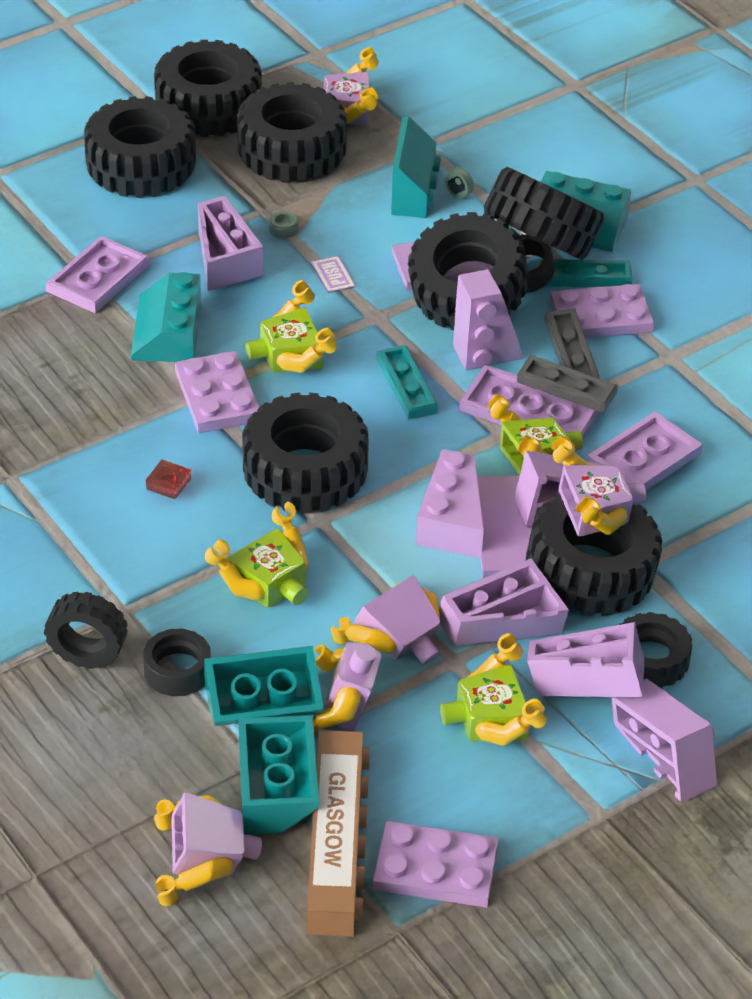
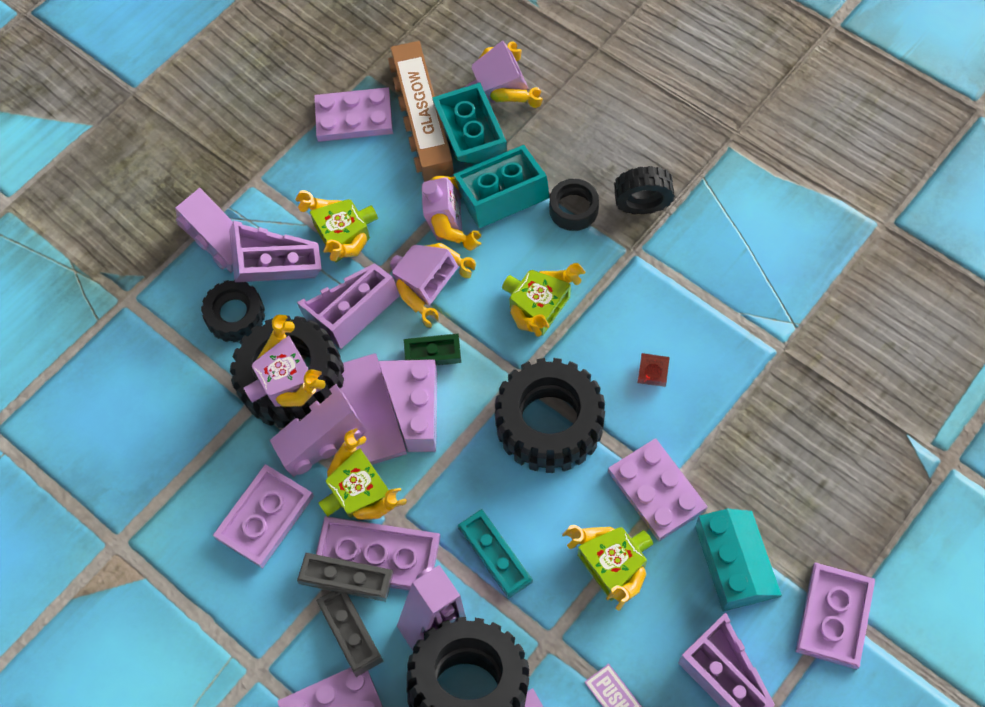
camera: 170 degrees right, 20 degrees up
(415, 553) = (441, 348): none -> dark green plate

